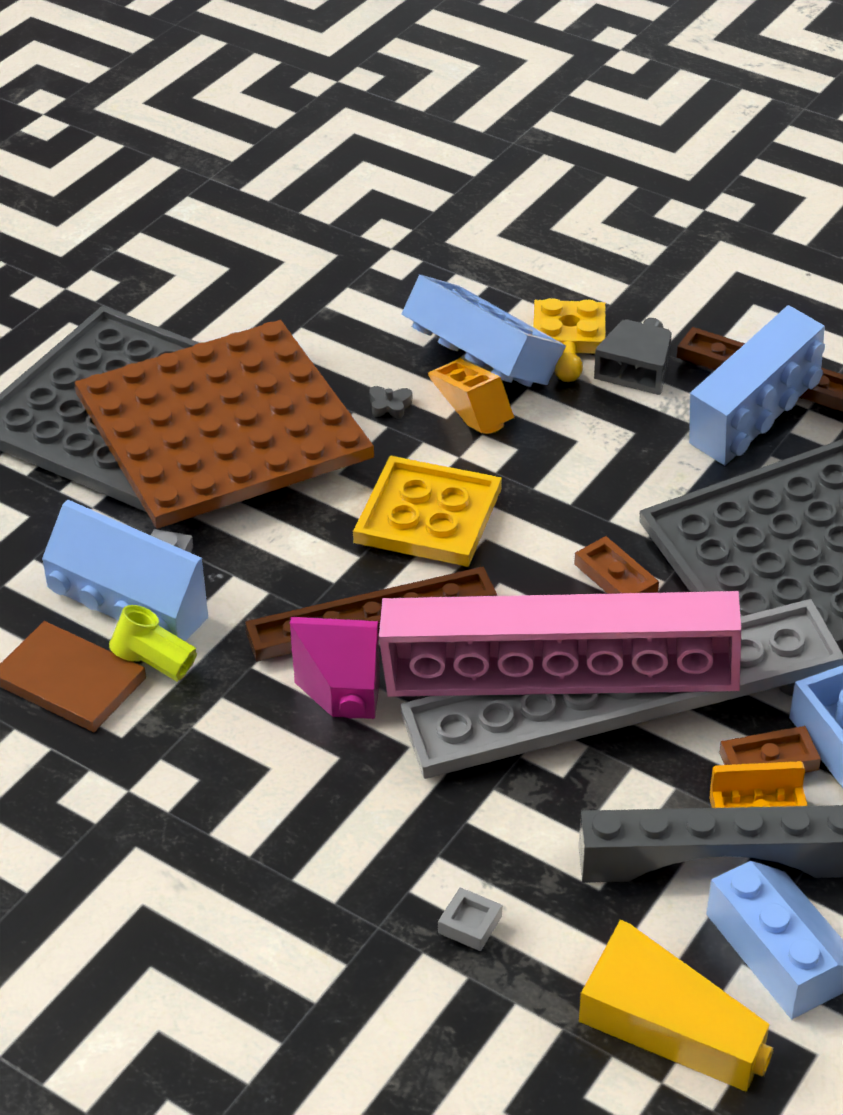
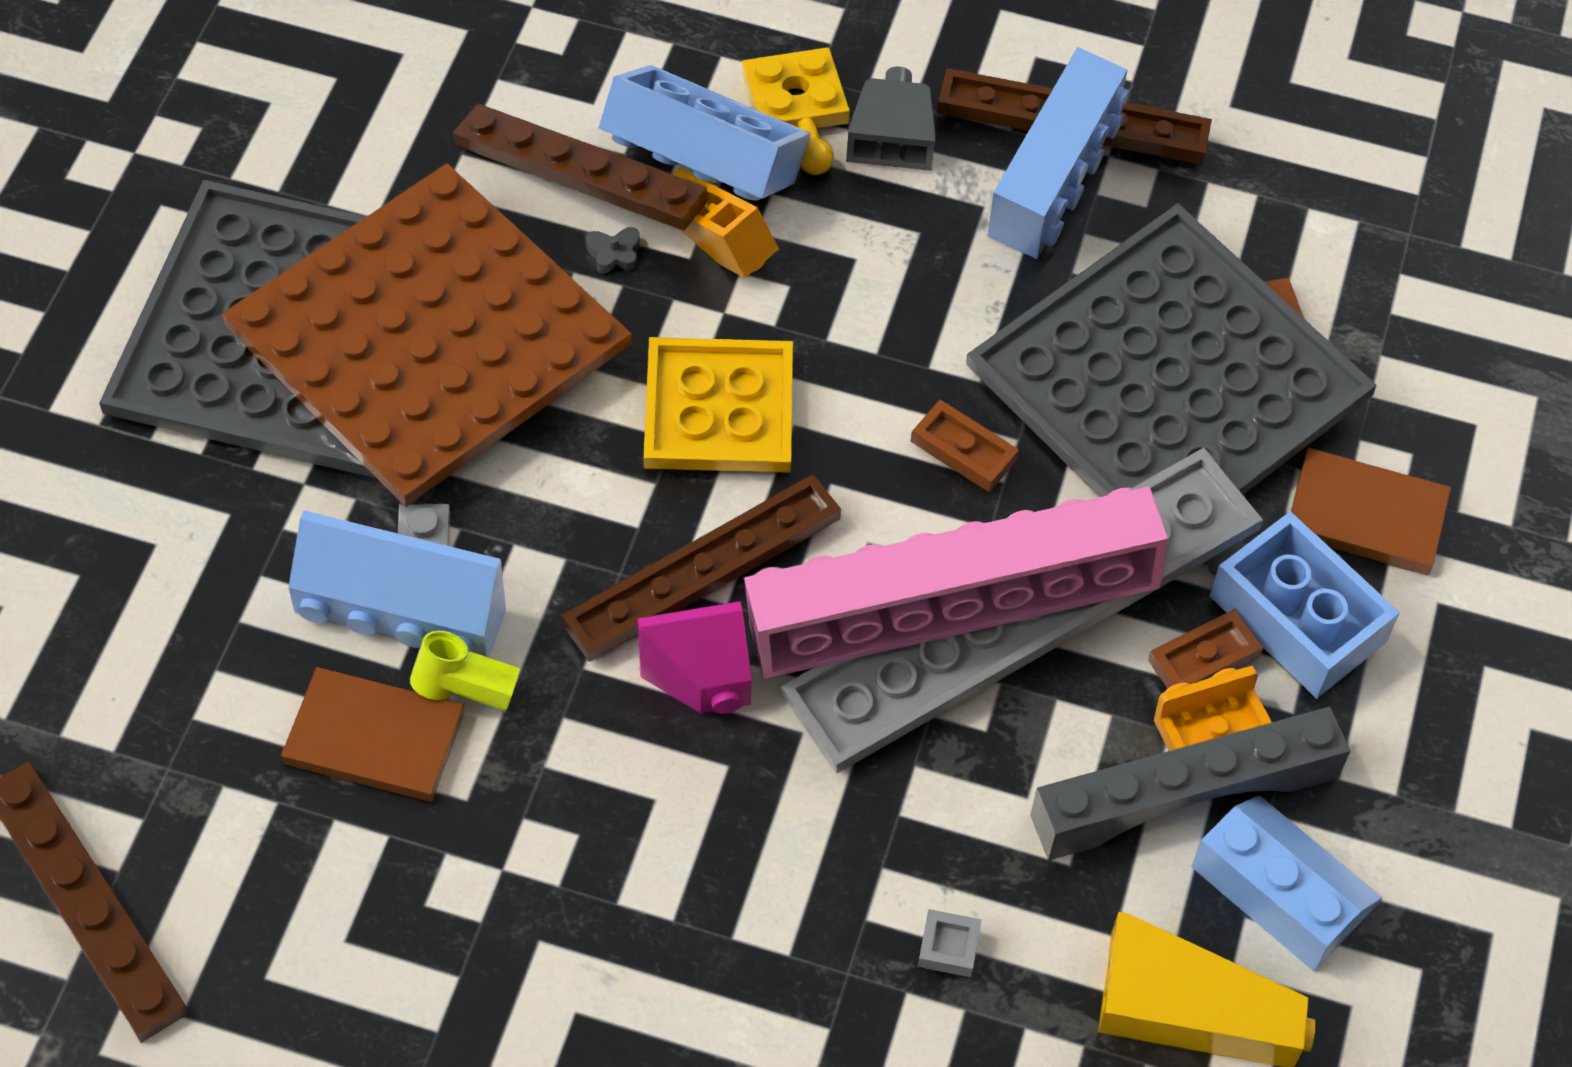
camera: 20 degrees left, 15 degrees up
(383, 341) = (581, 166): none -> reddish brown plate

